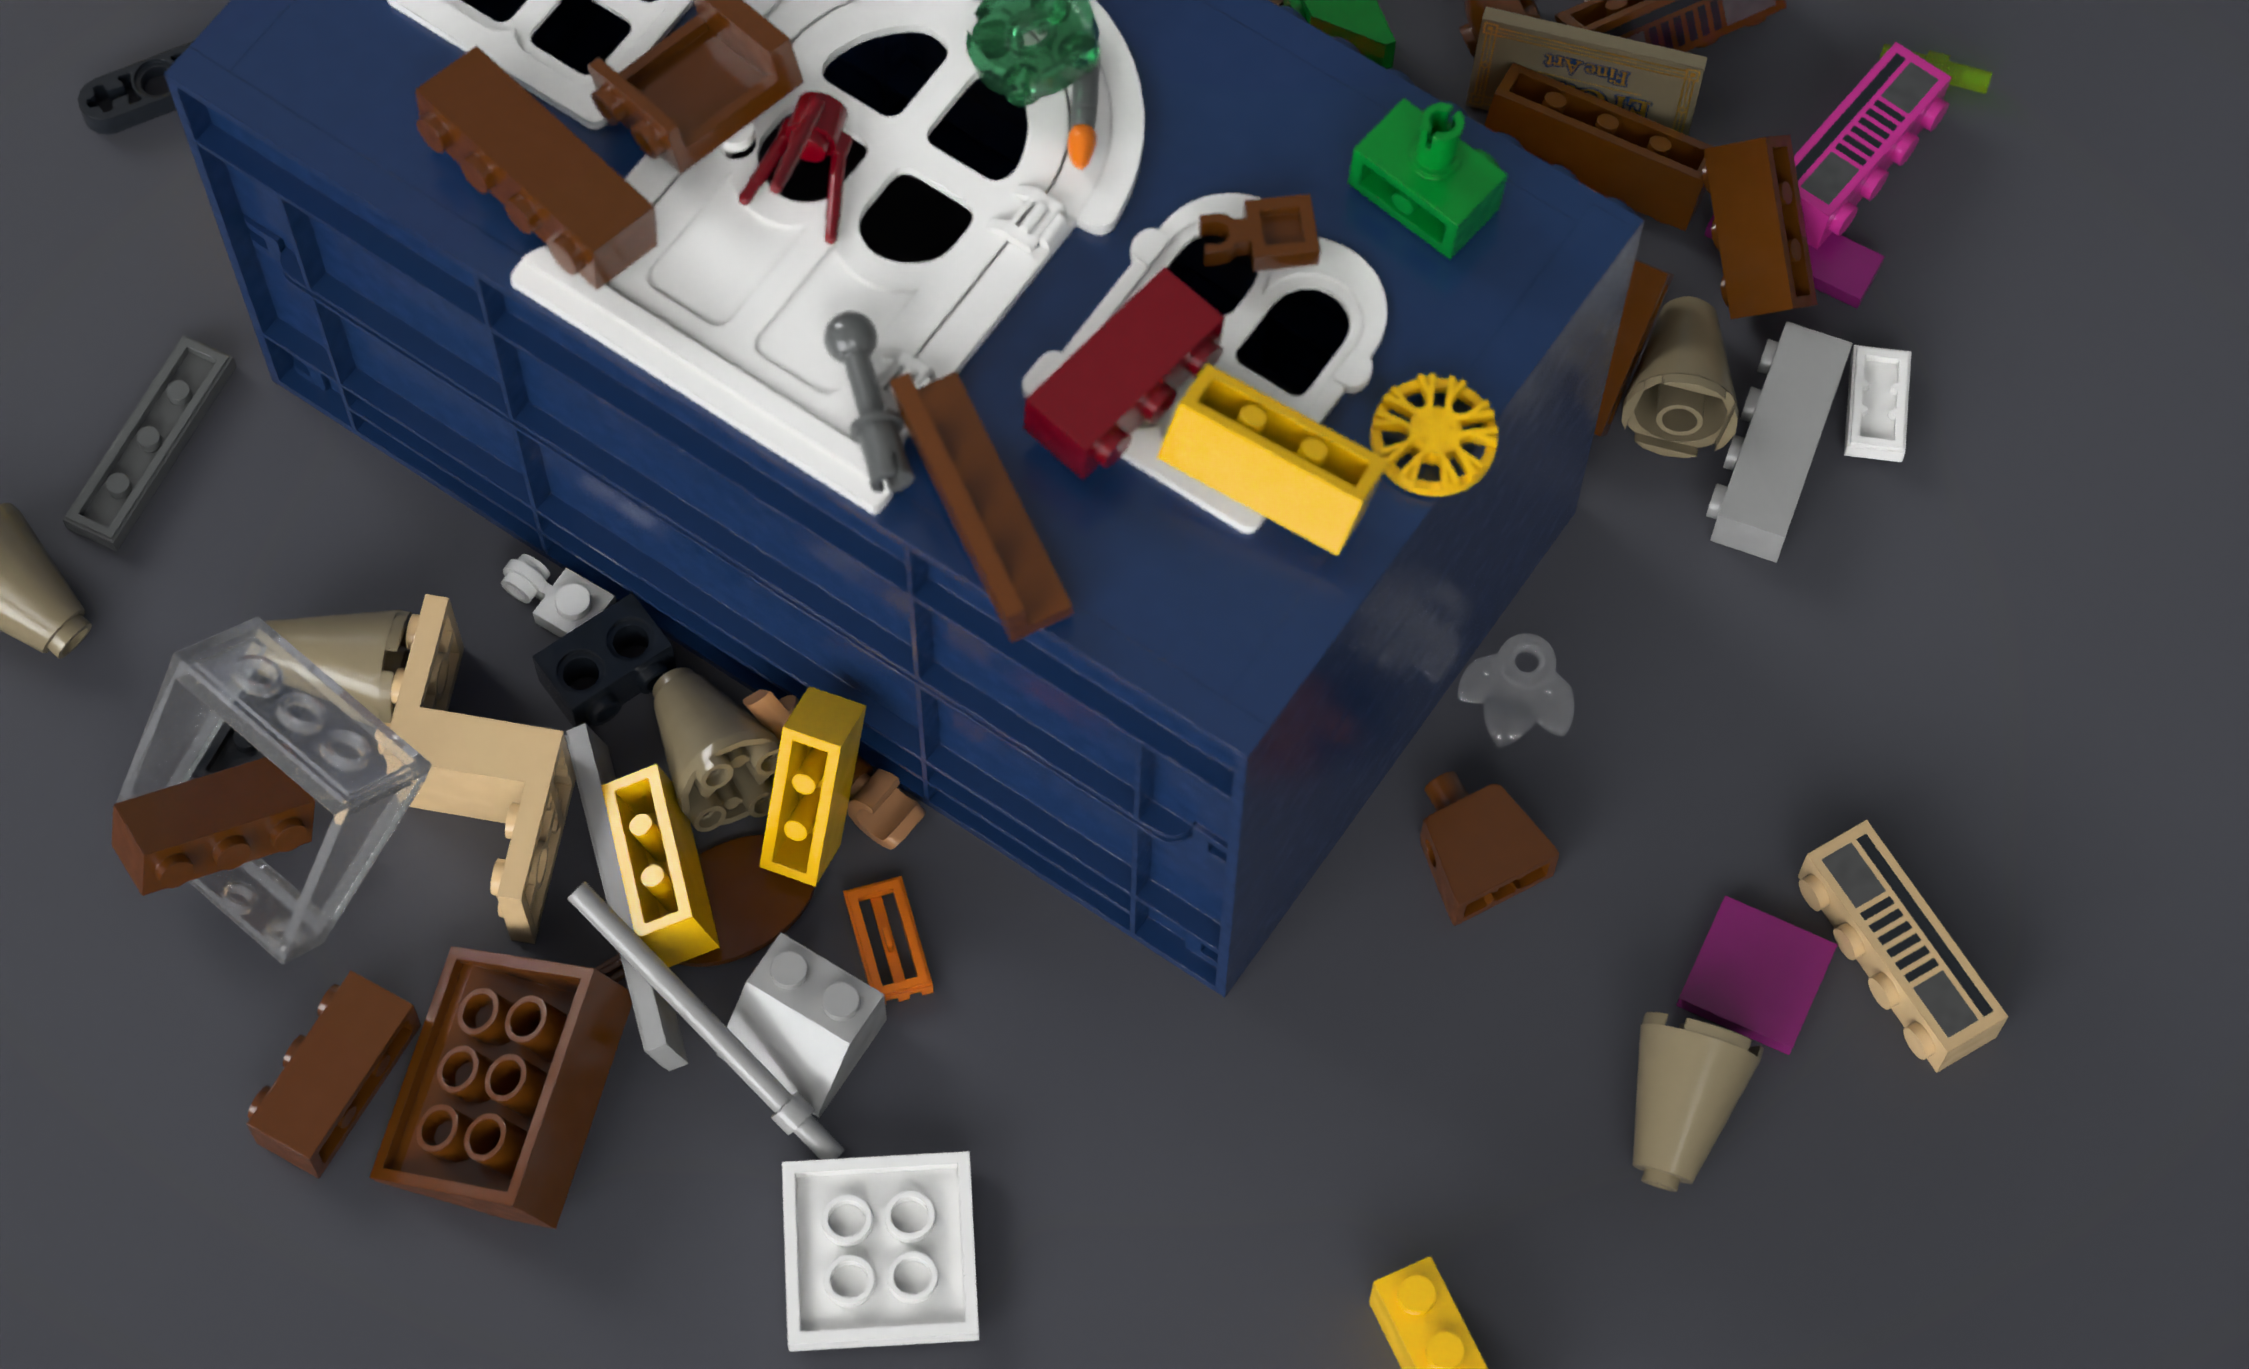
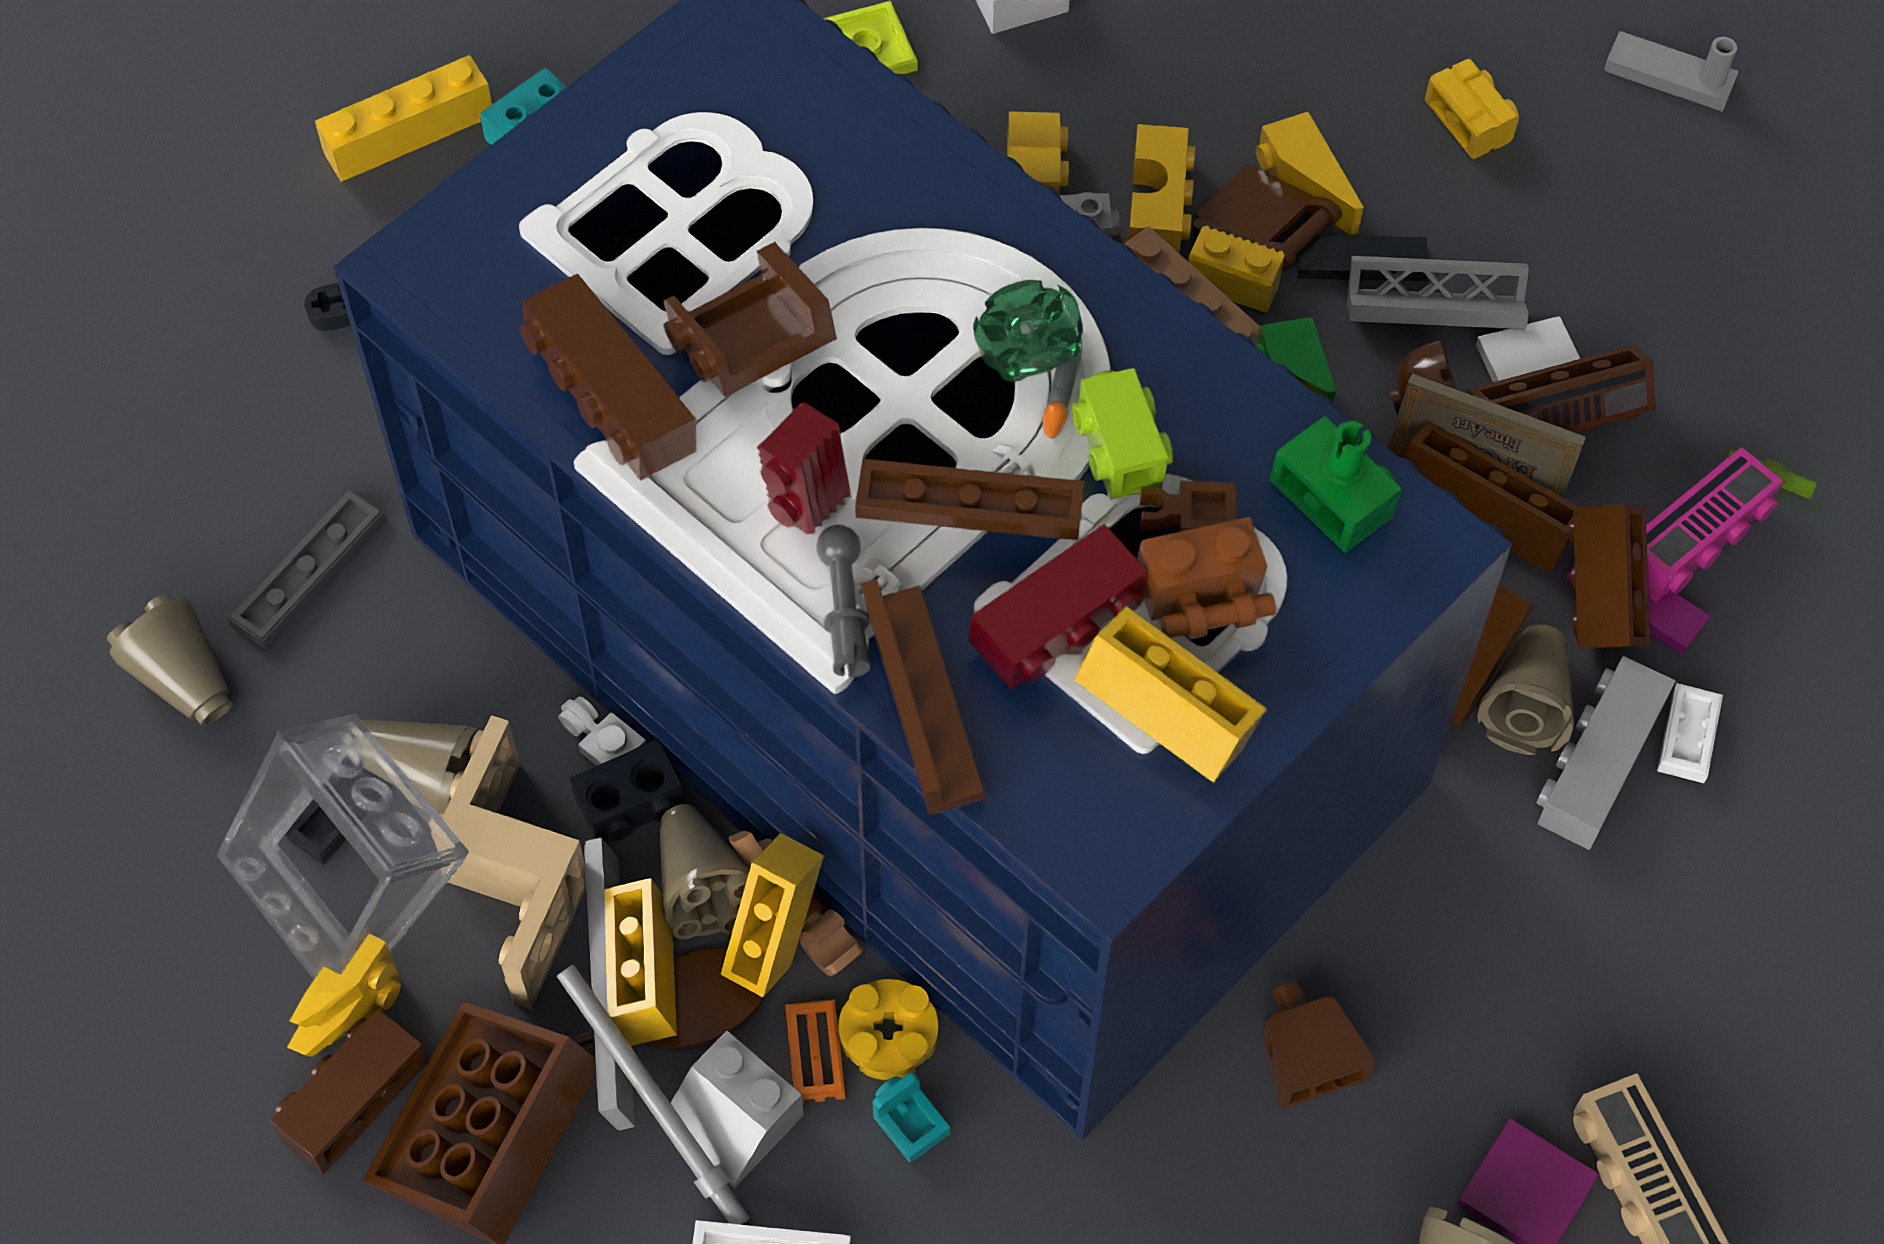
camera: 10 degrees right, 5 degrees down
(210, 825) = (288, 875): reddish brown brick -> none
(306, 966) = (339, 1001): none -> yellow plate
(796, 250) = (804, 469): none -> dark red brick
(808, 135) = (834, 380): dark red plant -> none
(977, 867) = (869, 1007): none -> yellow plate
(998, 258) = (969, 499): none -> reddish brown plate
(1015, 1002) = (908, 1117): none -> teal bracket
(1166, 152) = (1122, 433): none -> lime brick
(1293, 316) = (1205, 579): none -> dark orange brick
(1435, 435) = (1310, 695): yellow wheel -> none
(1516, 697) = (1361, 929): clear plate -> none

